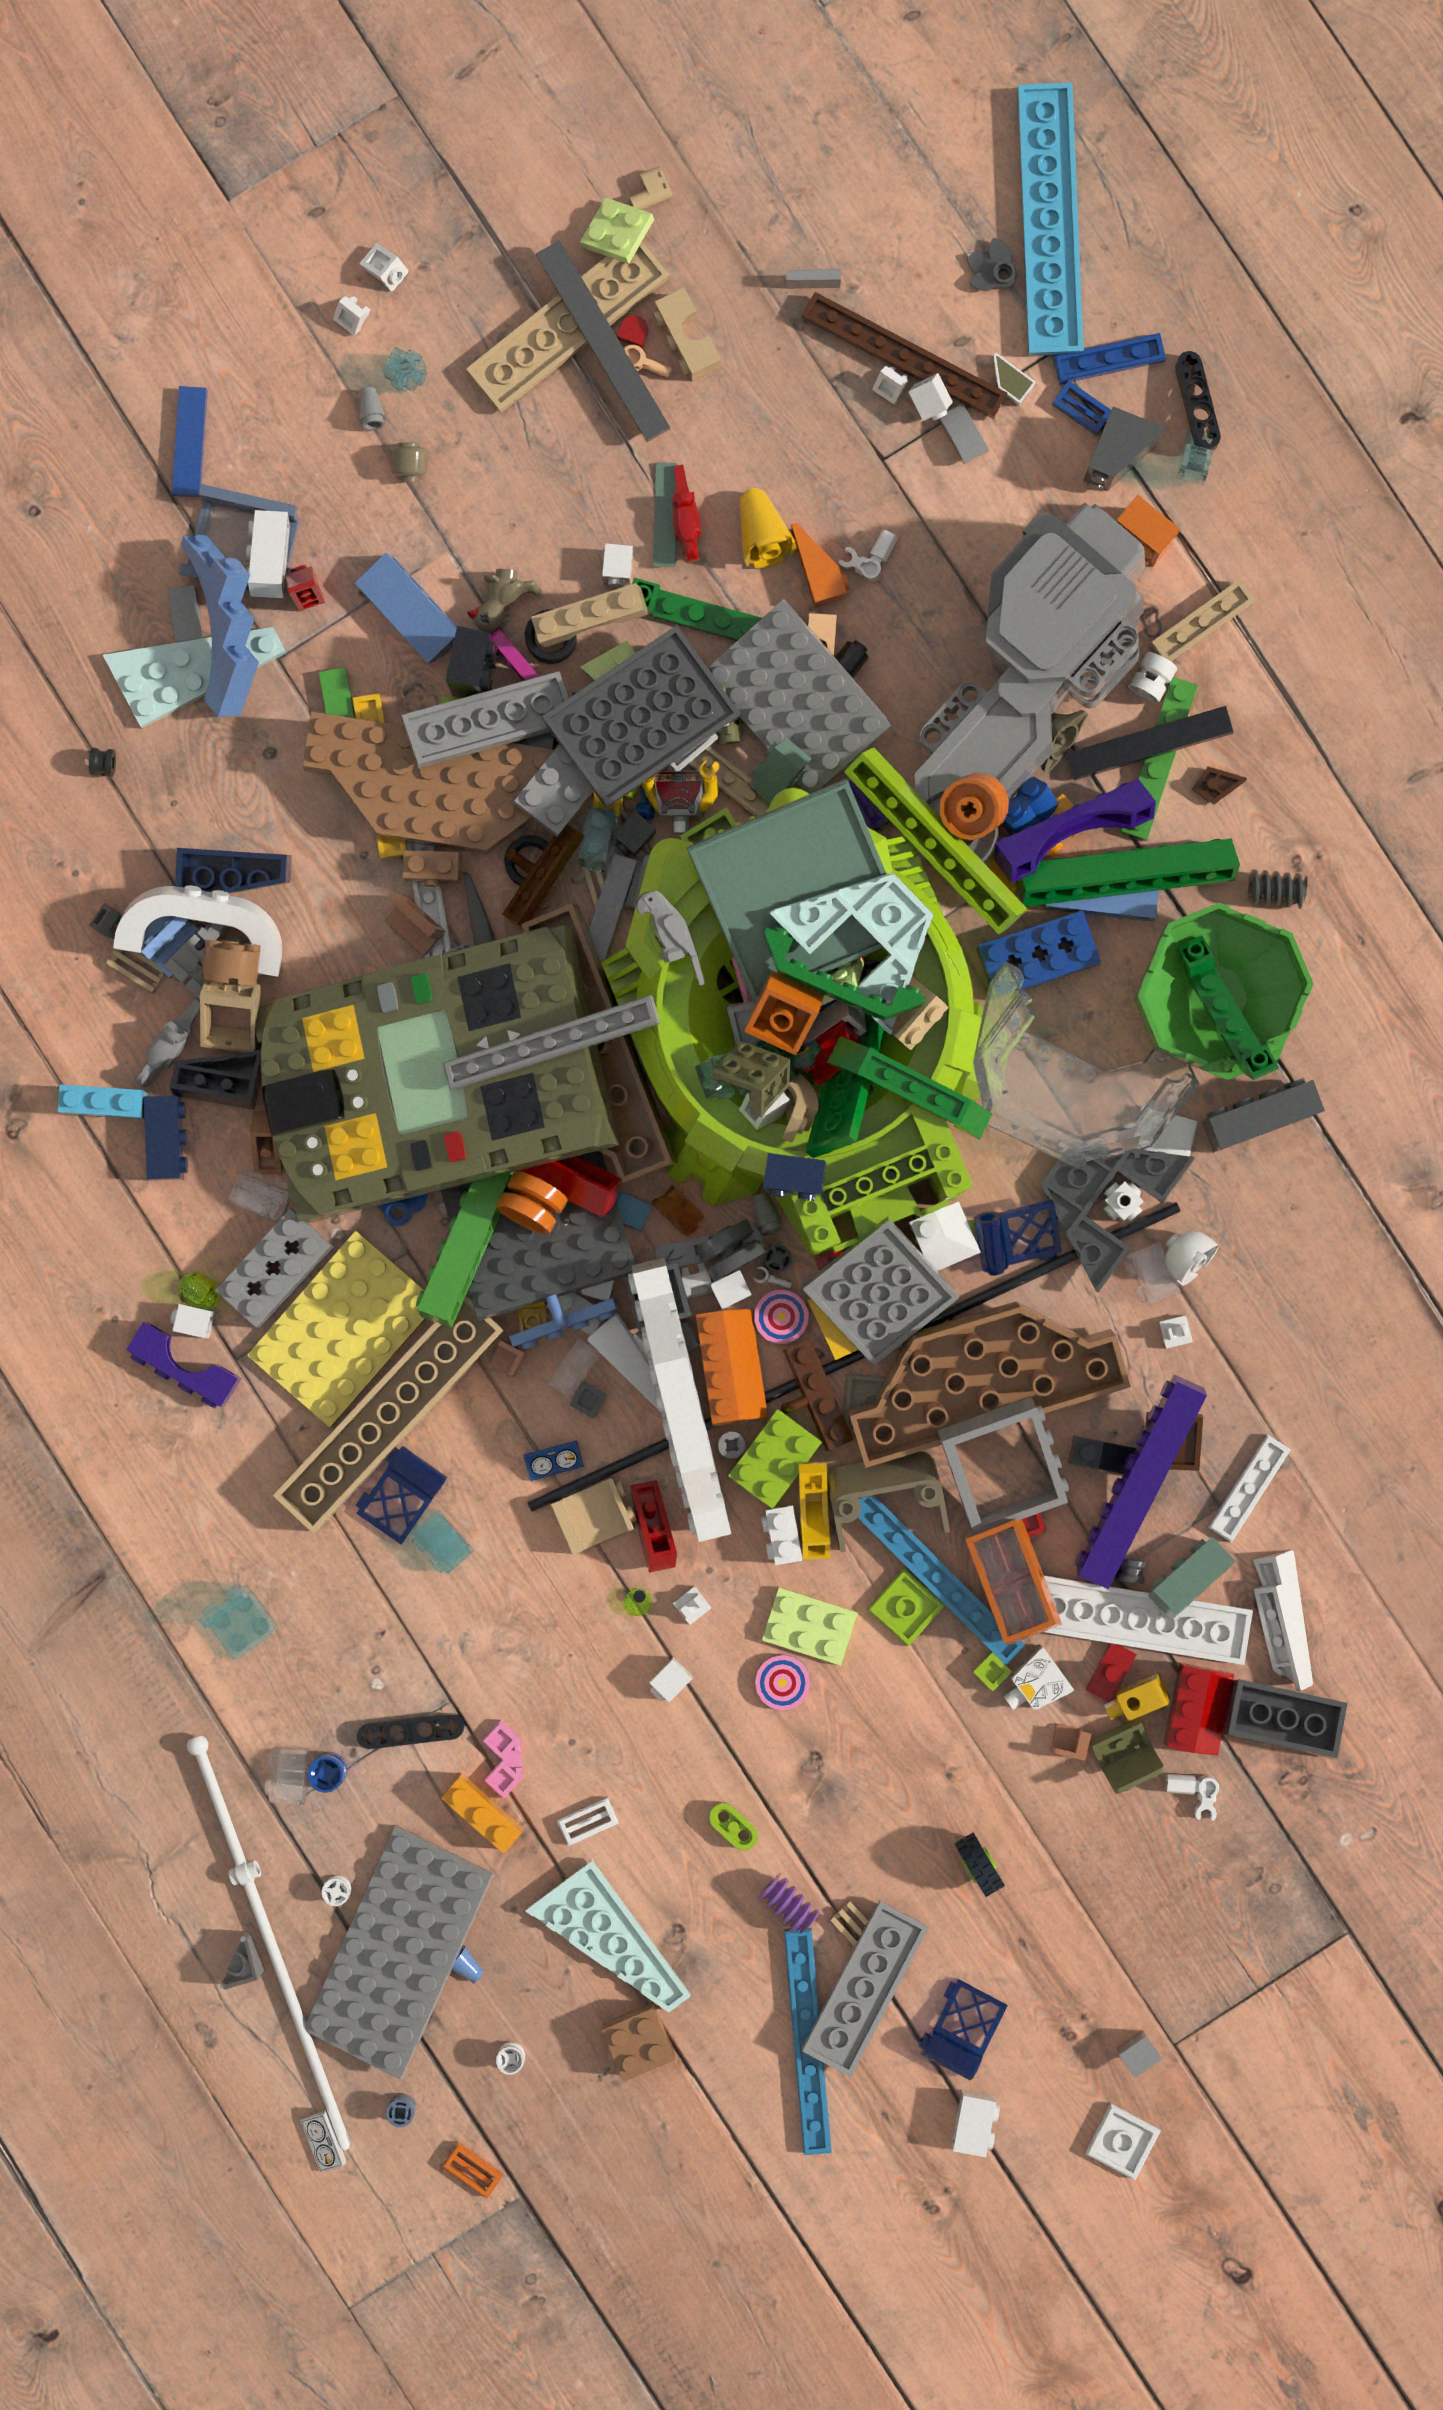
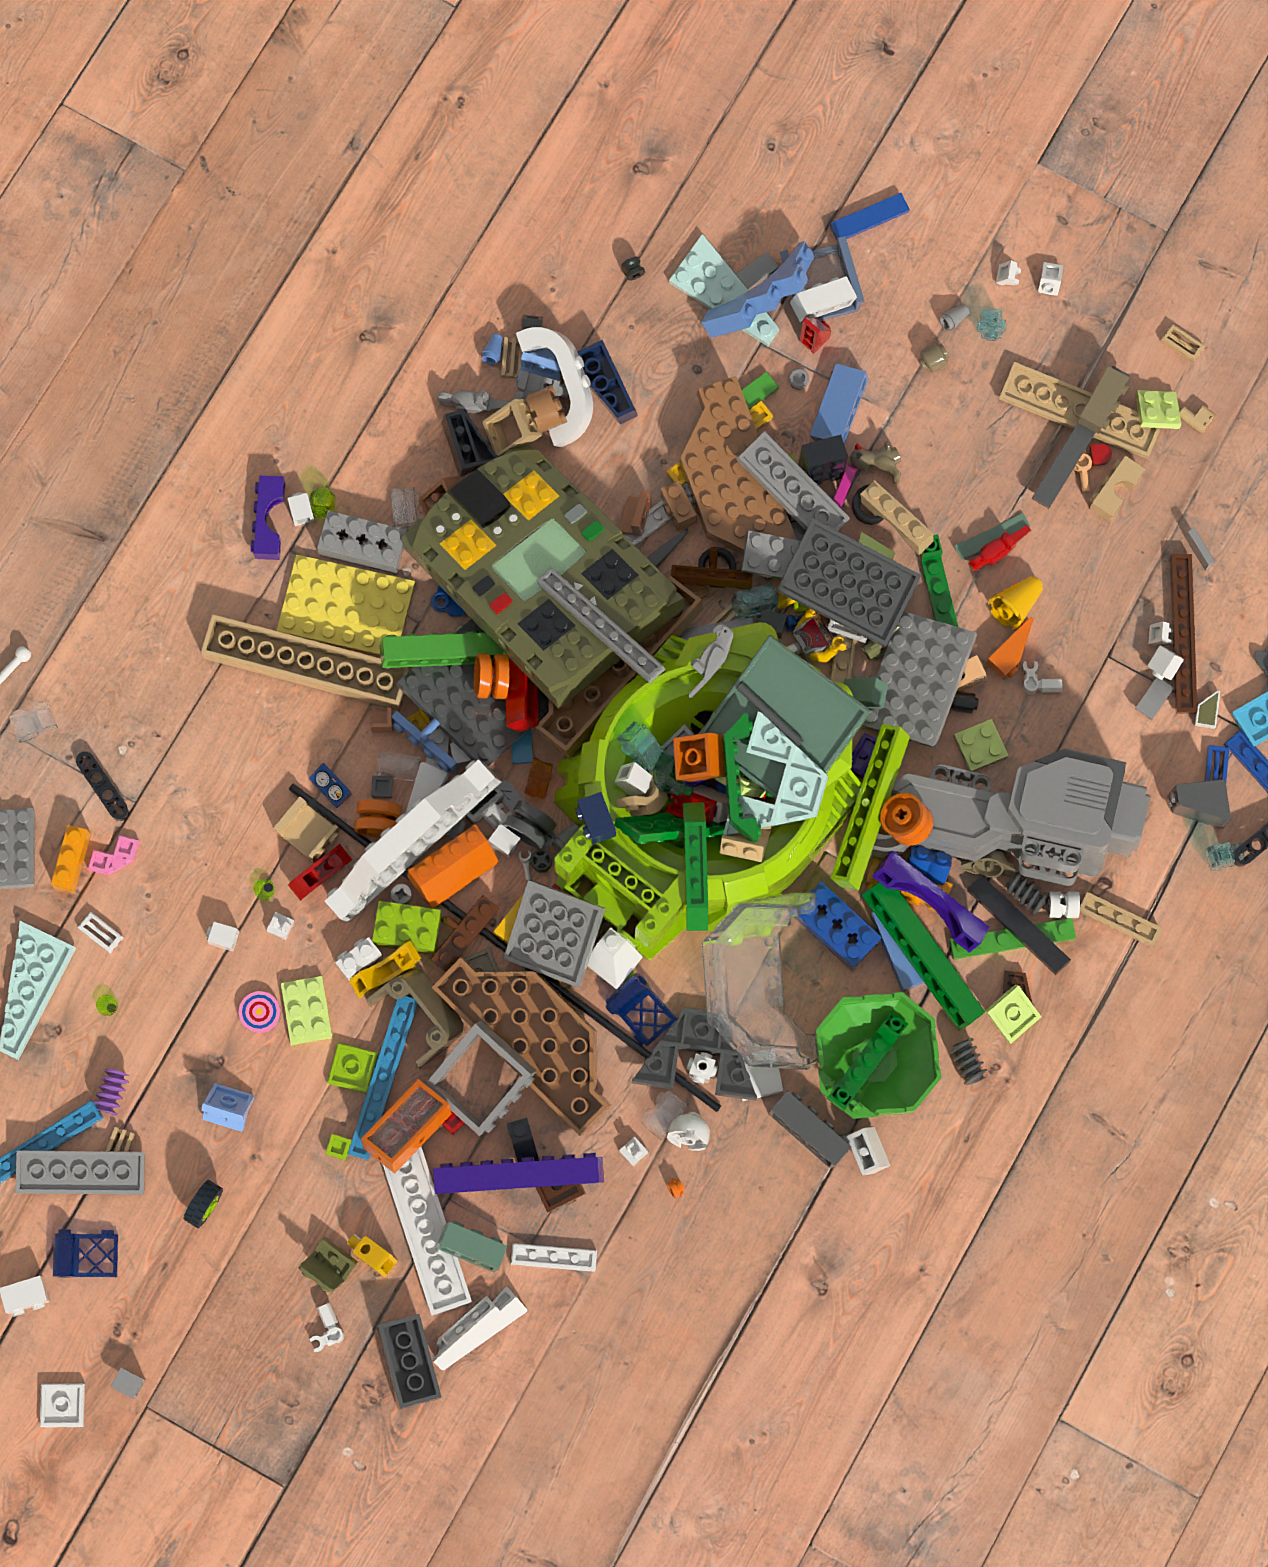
camera: 55 degrees right, 10 degrees down
(101, 1101) = (413, 380): medium azure brick -> none
(115, 986) = (492, 352): none -> medium blue cone
(165, 1138) = (410, 430): dark blue brick -> none
(239, 1621) = (118, 638): clear light blue bracket -> none
(327, 1772) = (47, 745): blue wheel -> none
(347, 637) = (798, 379): none -> light grey tile
(411, 1474) = (272, 703): clear blue piece -> none
(441, 1542) = (237, 741): clear light blue brick -> none
(533, 174) = (1177, 348): none -> tan tile
(576, 288) = (1104, 400): none -> dark tan brick
(617, 565) = (942, 521): white brick -> none
(629, 1426) = (376, 816): none -> orange wheel
(679, 1857) = (107, 1005): none -> clear neon green tile
(733, 1825) = (145, 1029): lime plate -> none
(758, 1071) = (651, 760): olive bracket -> none
(780, 901) = (770, 714): none -> dark grey bar
(781, 1316) = (504, 884): tile -> none
(876, 1776) = (227, 1107): none -> light blue bracket
(911, 668) = (981, 745): none -> yellowish green plate
(1037, 1681) = (347, 1181): white torso -> none
(1070, 1742) = (318, 1225): nougat panel -> none
(1110, 1672) = (380, 1228): red tile -> none
(1116, 712) = (1026, 892): none -> dark grey piece
(1132, 1571) = (455, 1205): dark grey wheel -> none
(1149, 528) = (1156, 847): orange brick -> none
(1198, 1709) = (384, 1301): red slope -> none
(1243, 1306) = (675, 1187): none -> orange plate
(1249, 807) = (1013, 1013): none -> yellowish green plate
(1321, 1061) = (868, 1151): none -> white brick

